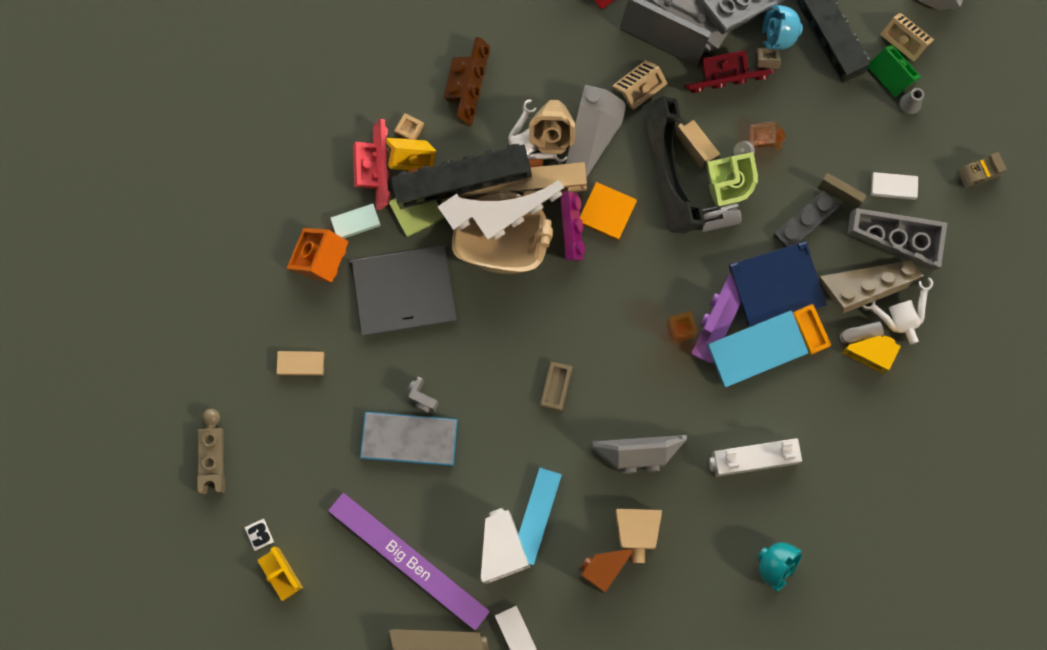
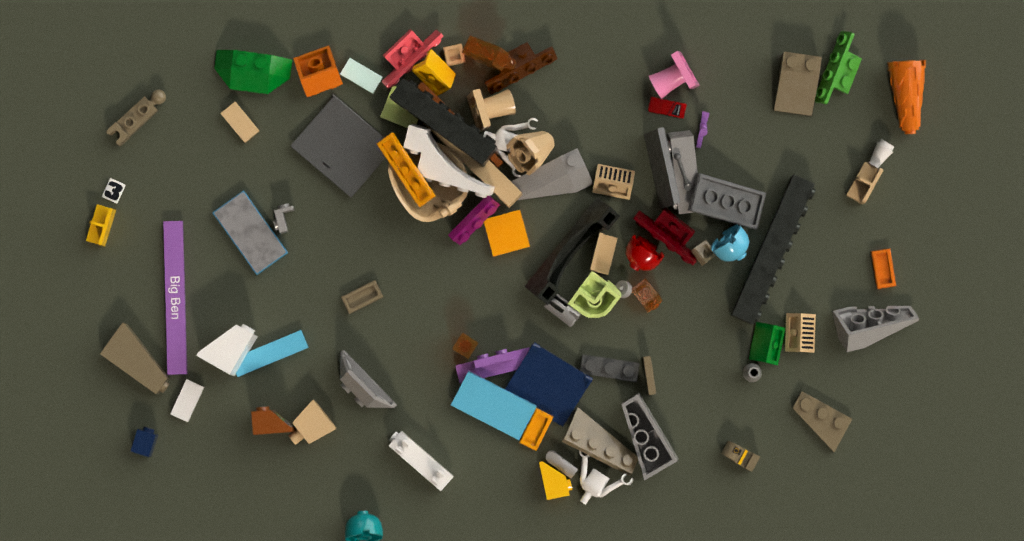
camera: 50 degrees right, 10 degrees up
(263, 312) = (252, 70): none -> green wedge
(435, 92) = (488, 54): none -> clear orange hinge
(475, 243) = (406, 169): none -> light orange tile
(481, 135) = (491, 107): none -> tan plant
(728, 108) = (642, 254): none -> red cylinder
(894, 186) = (683, 407): white tile -> none
(1002, 77) = (822, 419): none -> dark tan wing

